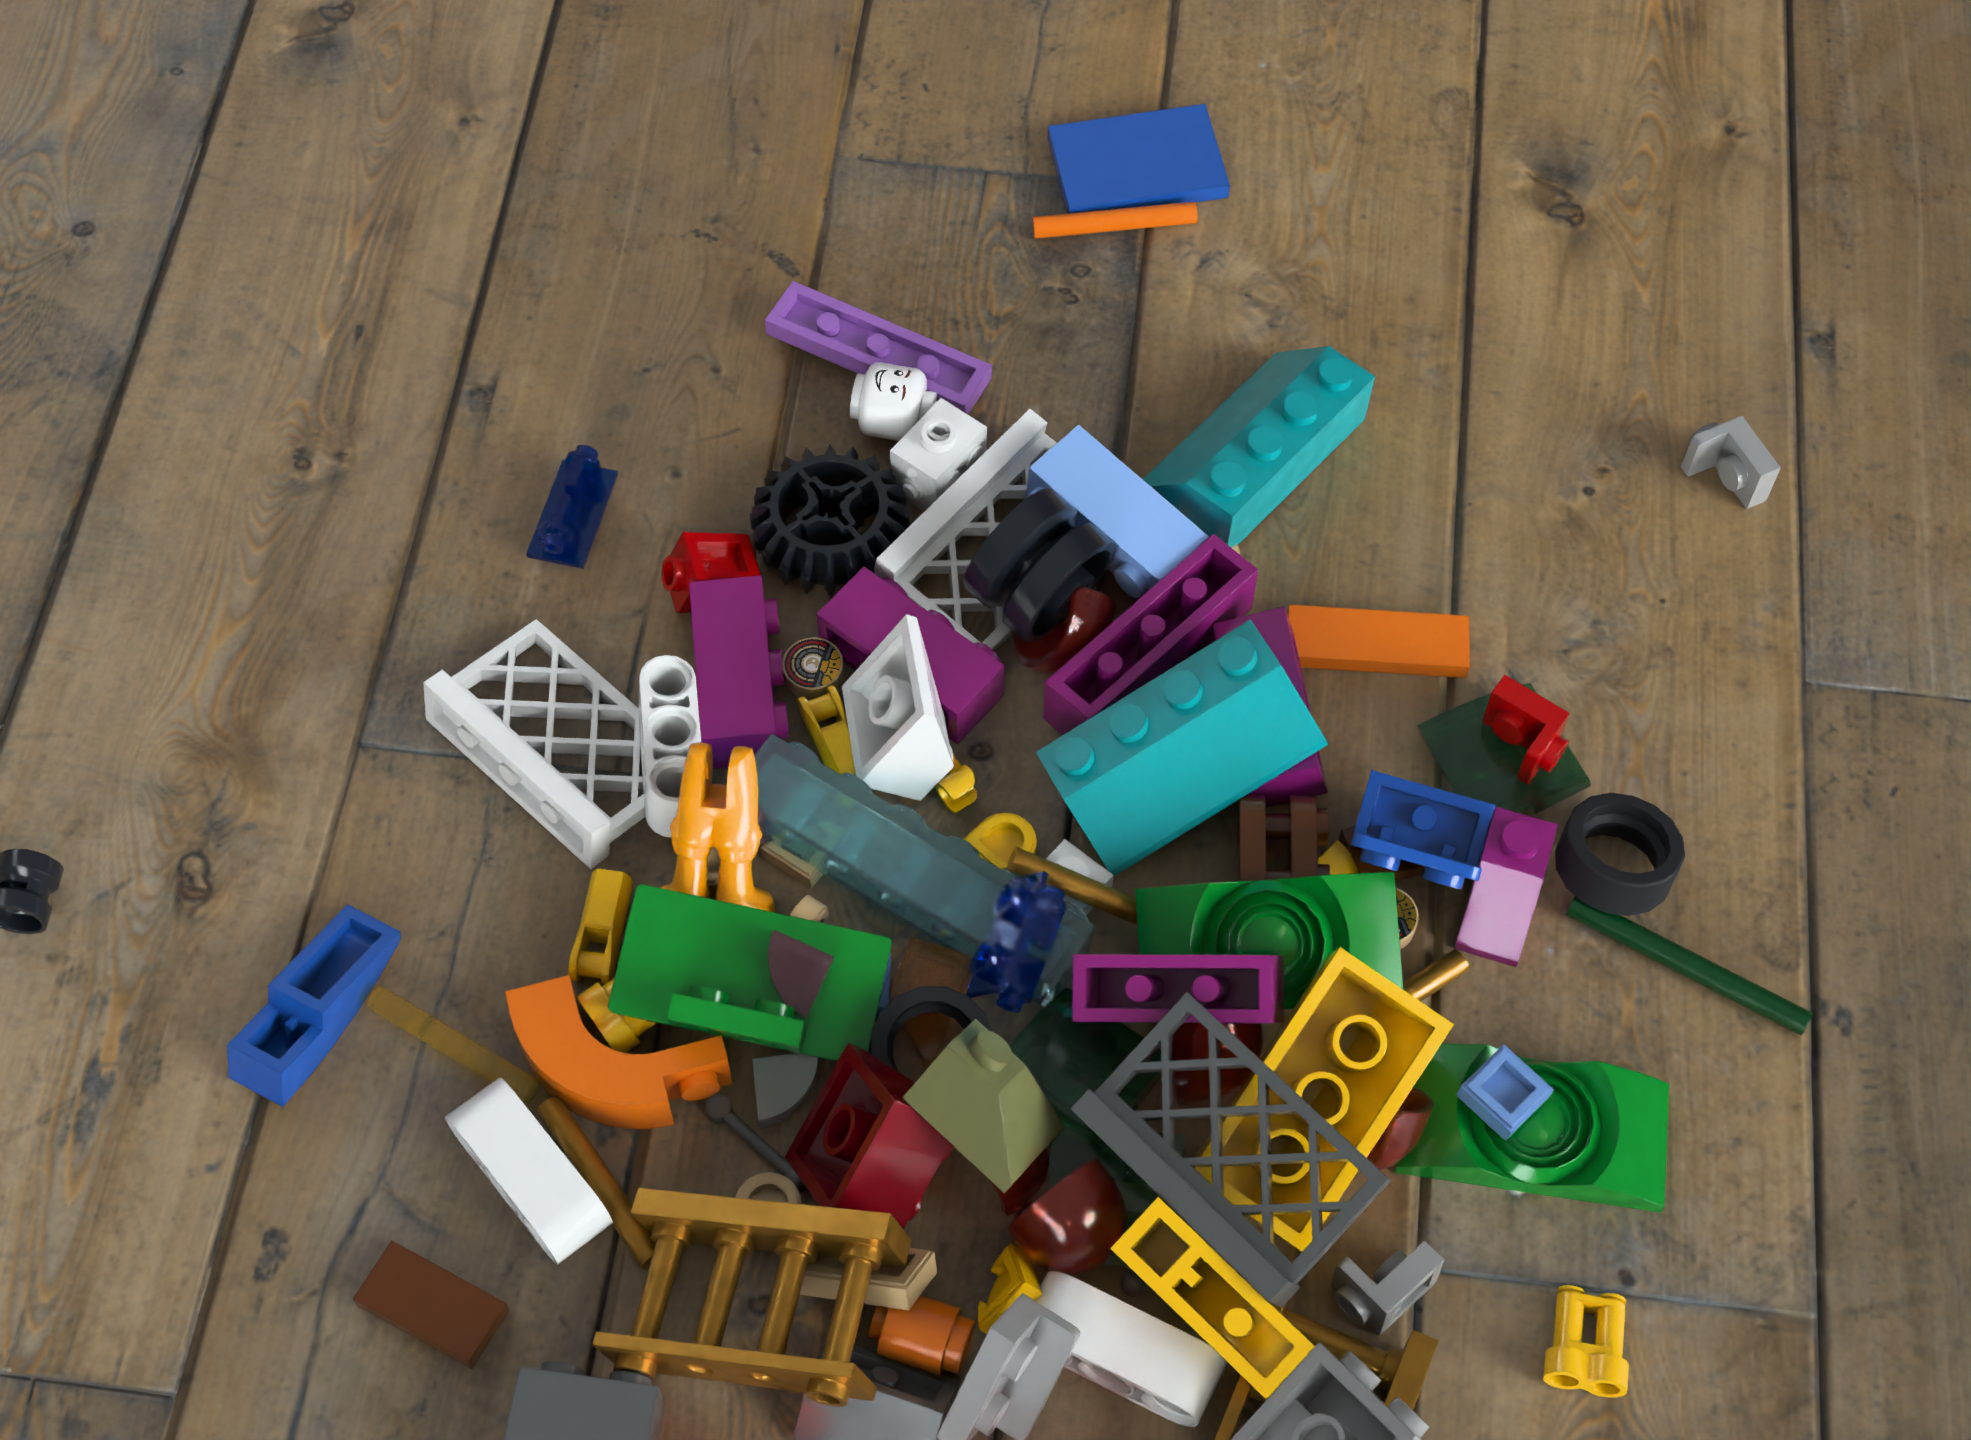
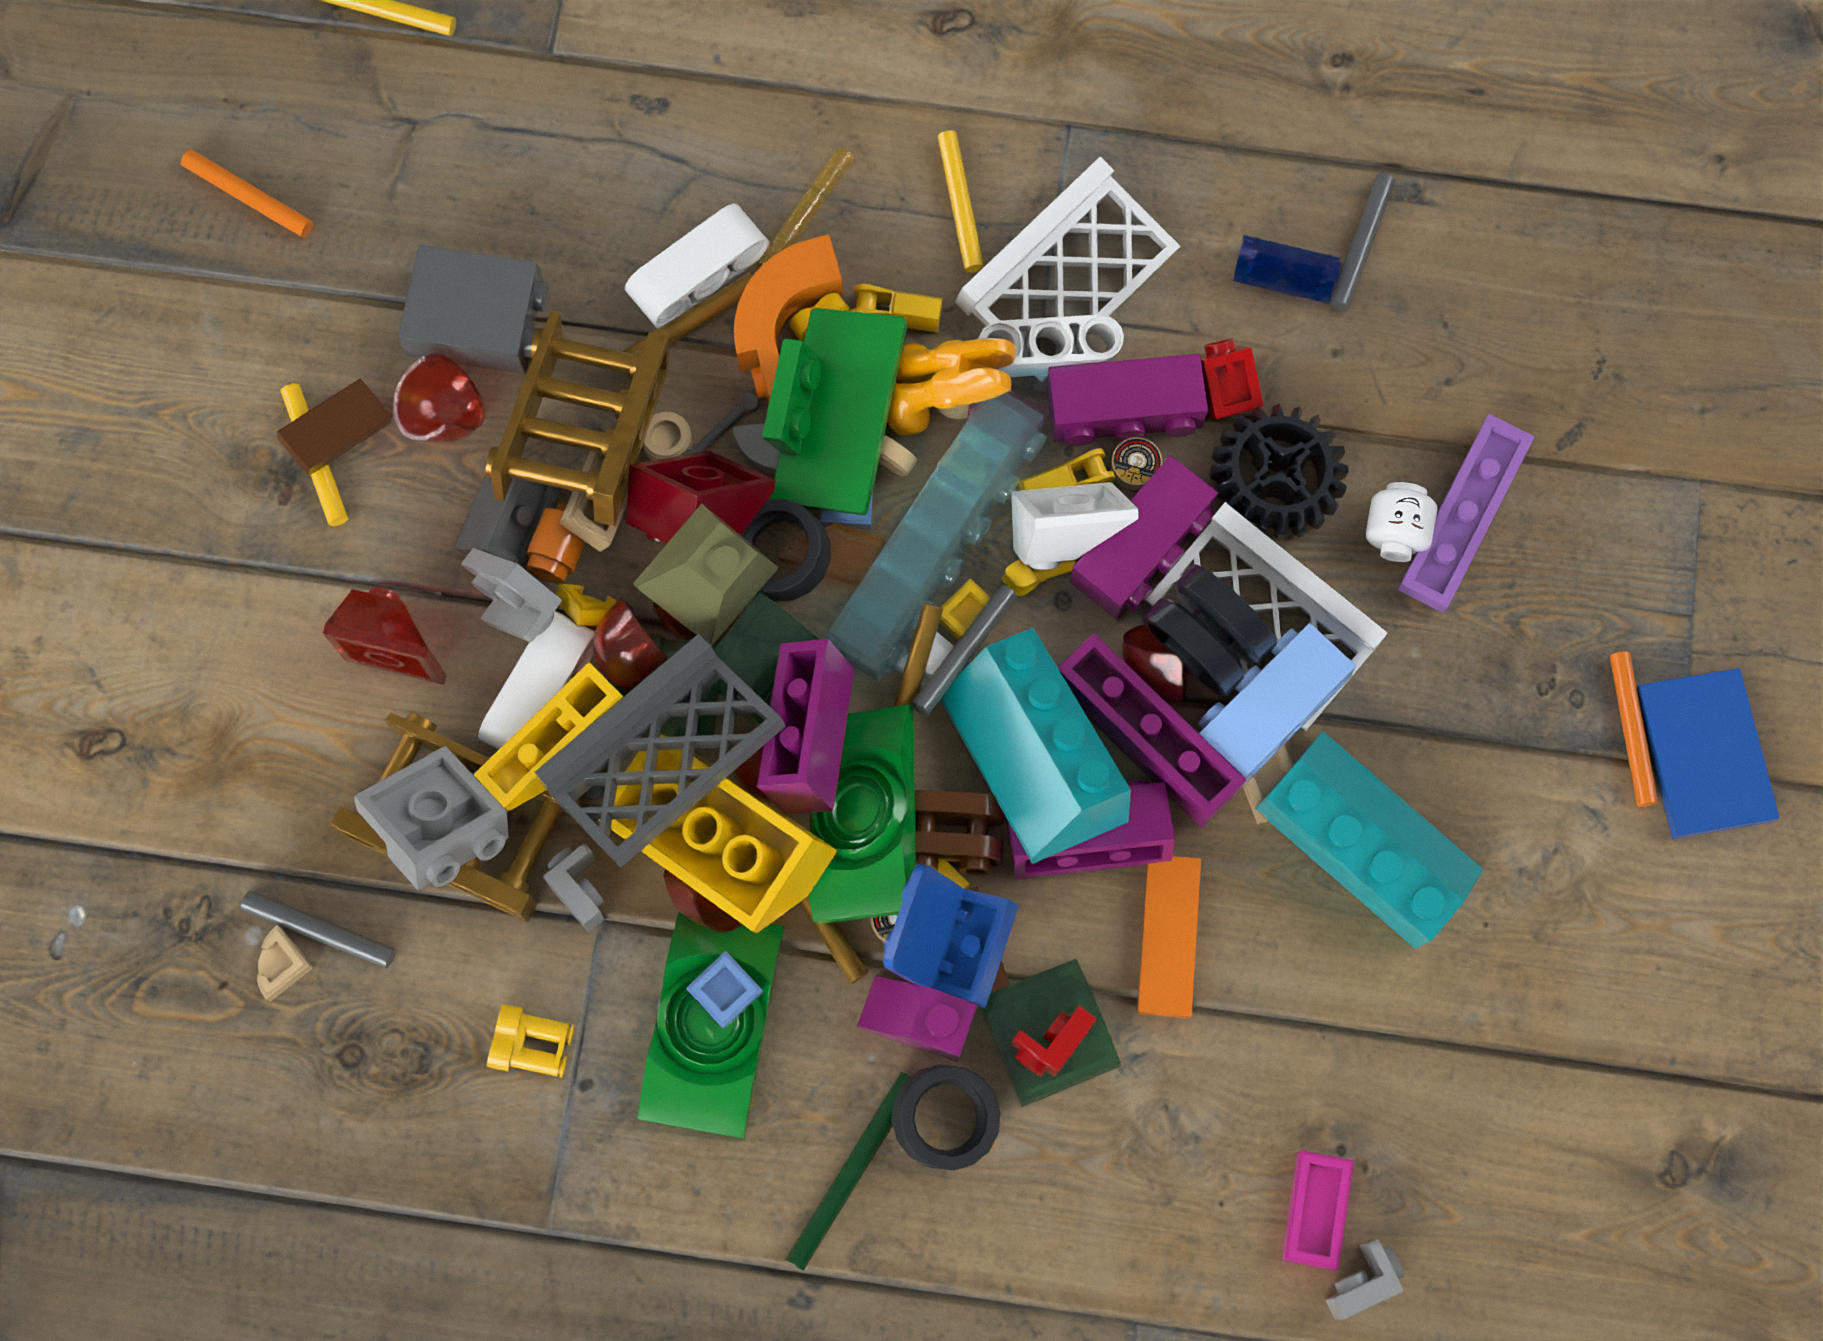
camera: 90 degrees right, 15 degrees up
(311, 1005) = (837, 109): blue slope -> none
(431, 1304) = (602, 210): reddish brown tile -> none
(454, 860) = (960, 201): none -> yellow bar
(533, 436) = (1362, 242): none -> dark grey bar
(797, 971) = (835, 441): clear pink tile -> none
(936, 453) = (1344, 558): white head -> none
(1024, 914) = (835, 595): clear blue hinge -> none
(1059, 836) = (964, 650): none -> dark grey bar
(1658, 509) = (1317, 1210): none -> dark pink tile

